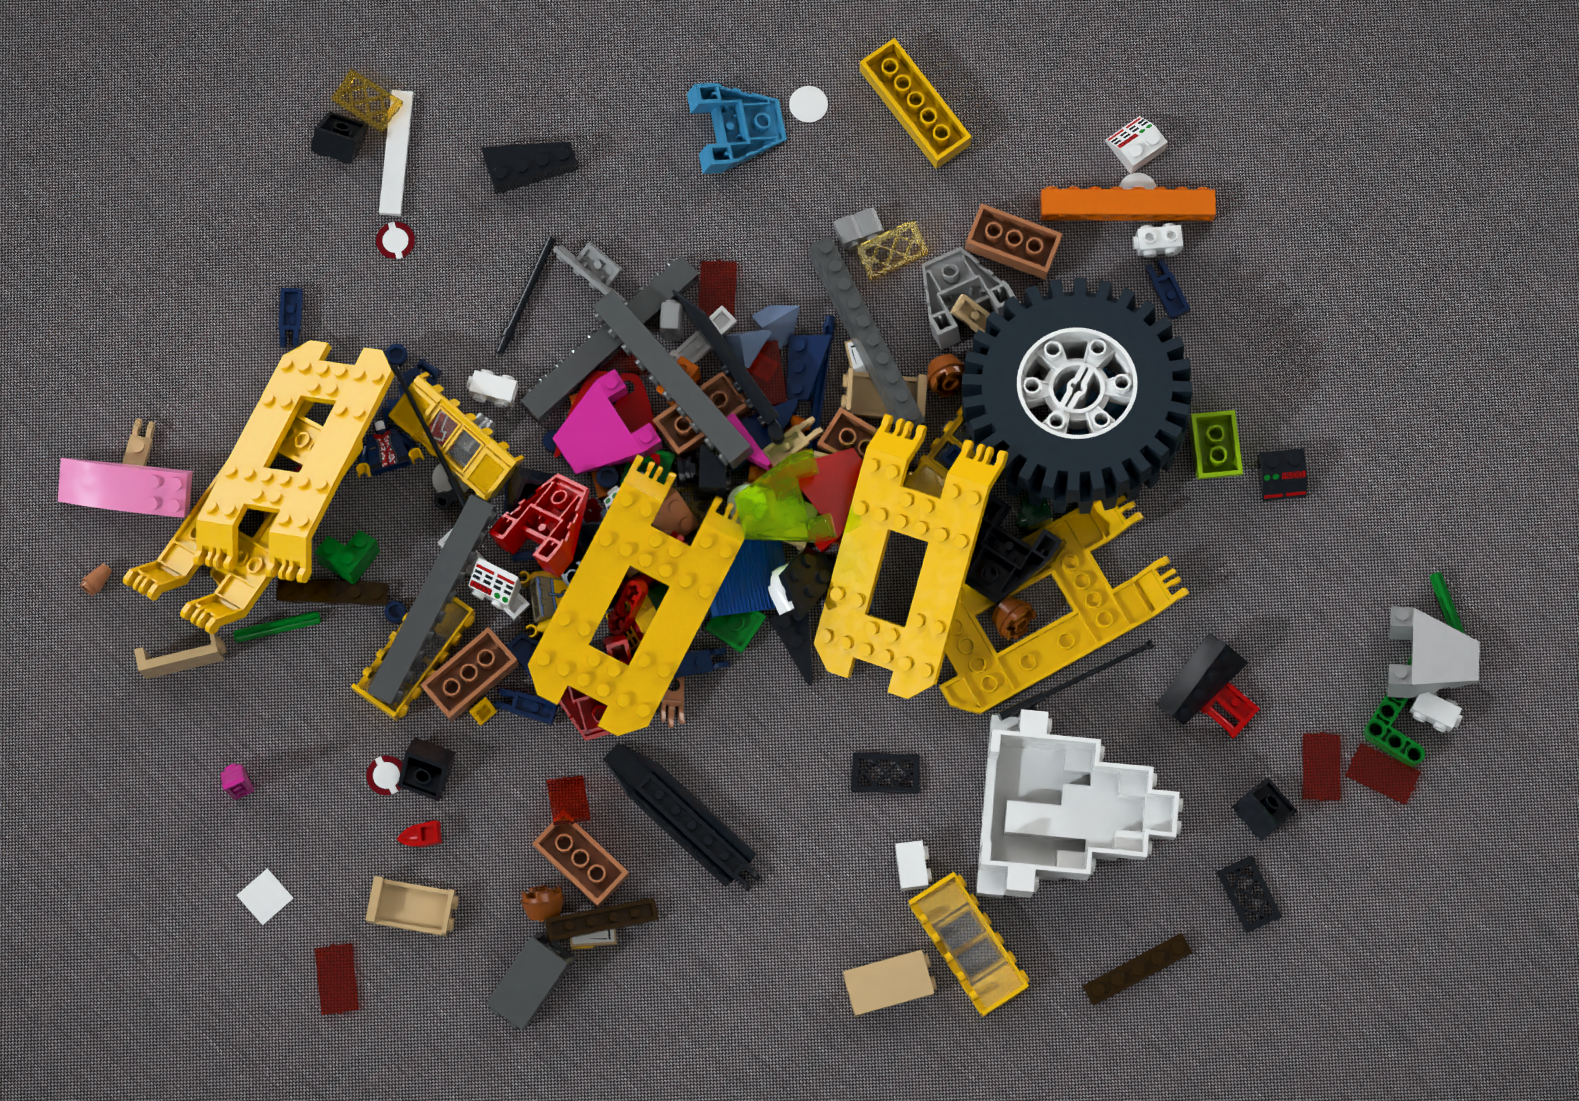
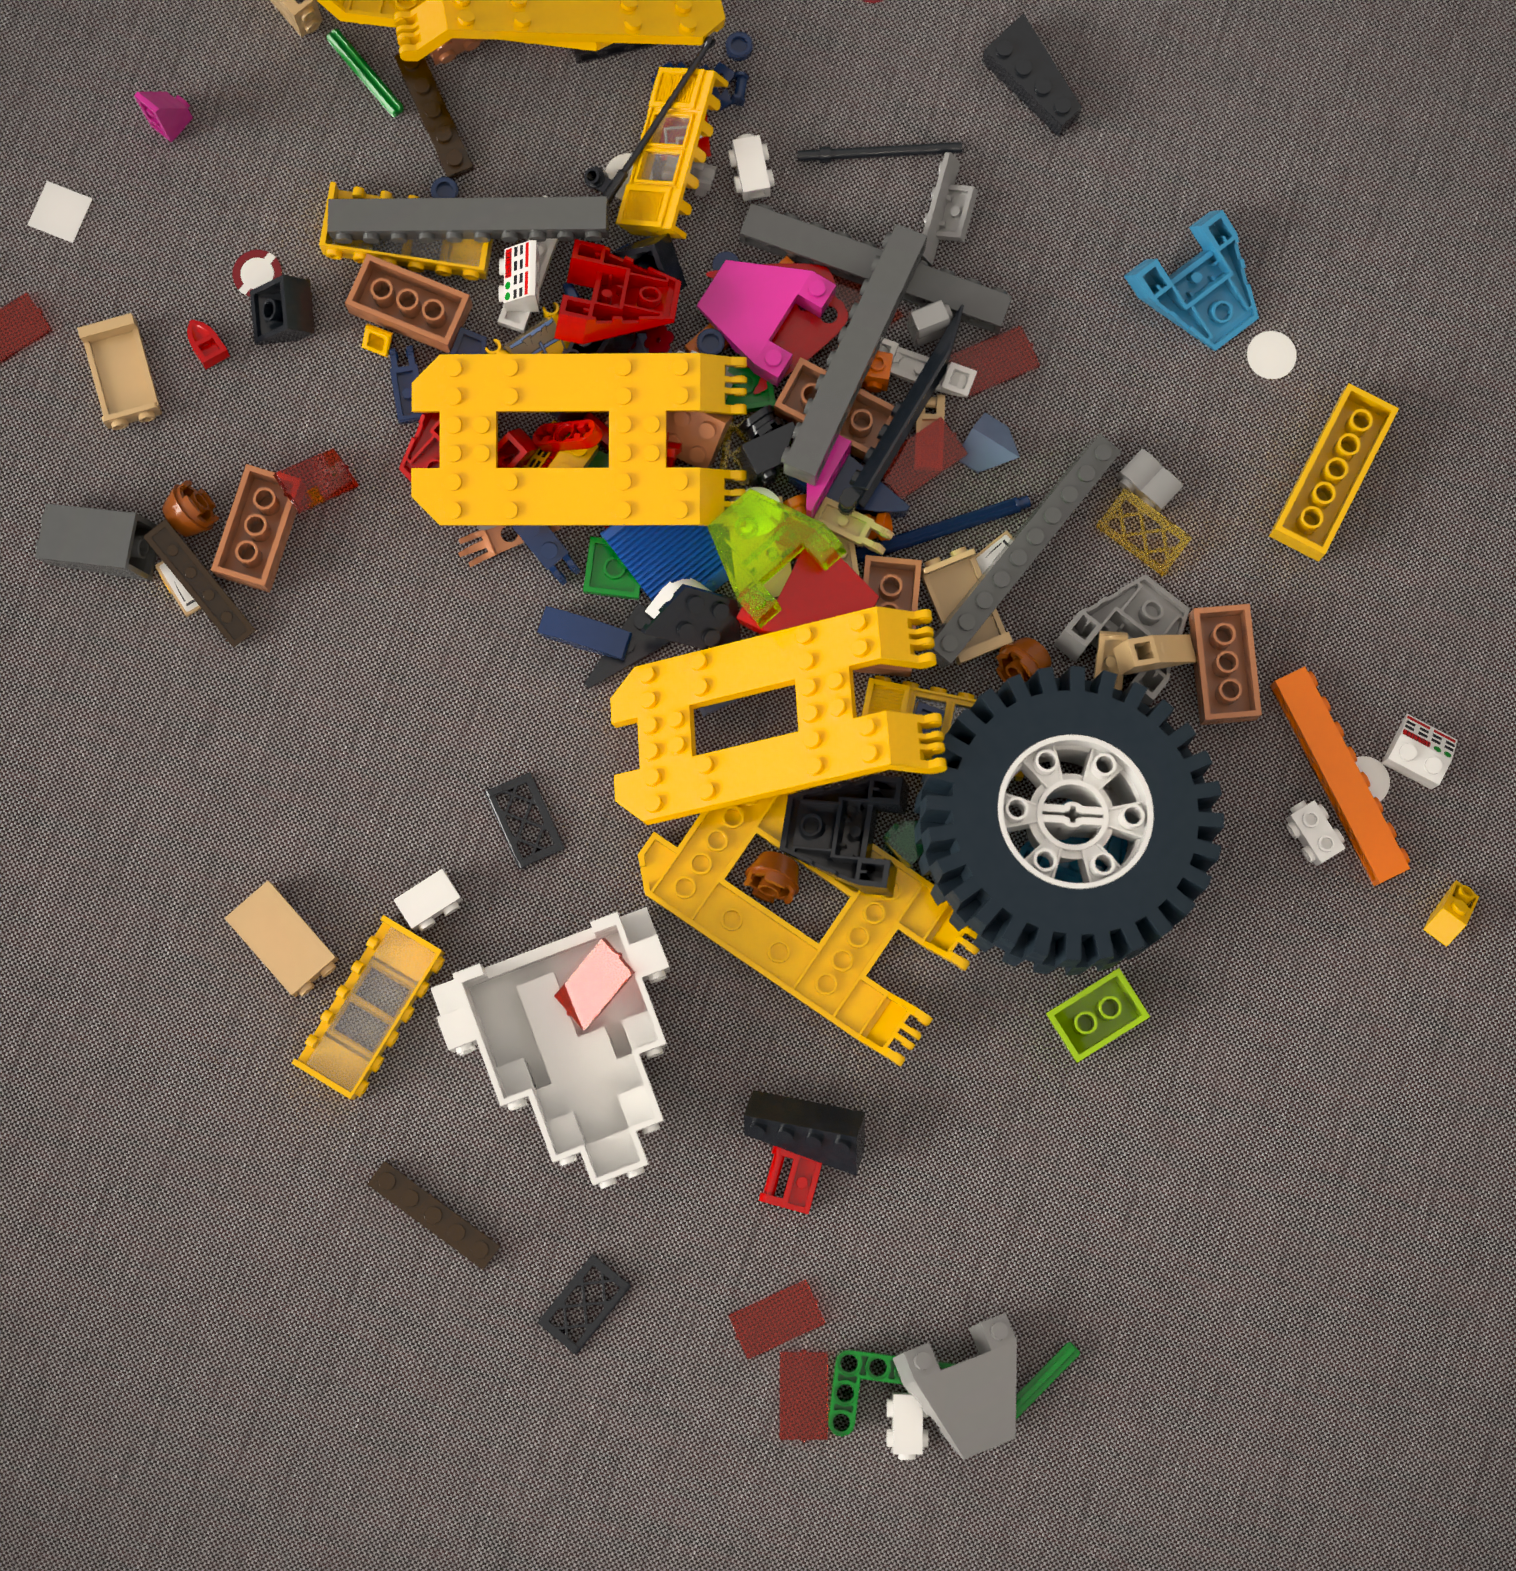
camera: 60 degrees right, 5 degrees up
(348, 560) = (477, 112): green brick -> none
(386, 451) = (619, 87): torso -> none
(682, 816) = (361, 616): black hinge -> none
(747, 344) = (942, 420): sand blue slope -> none
(773, 665) = (584, 633): none -> dark blue slope
(804, 364) = (957, 497): dark blue wing -> none
(985, 283) = (1154, 653): none -> tan slope
(1029, 703) = (678, 944): black piece -> none
(1033, 772) = (594, 984): none -> clear red piece
(1168, 291) = (1258, 873): dark blue hinge -> none
(1258, 178) = (1451, 913): none -> yellow slope
(1264, 809) = (692, 1275): black slope -> none
(1282, 474) = (1103, 1111): black slope -> none

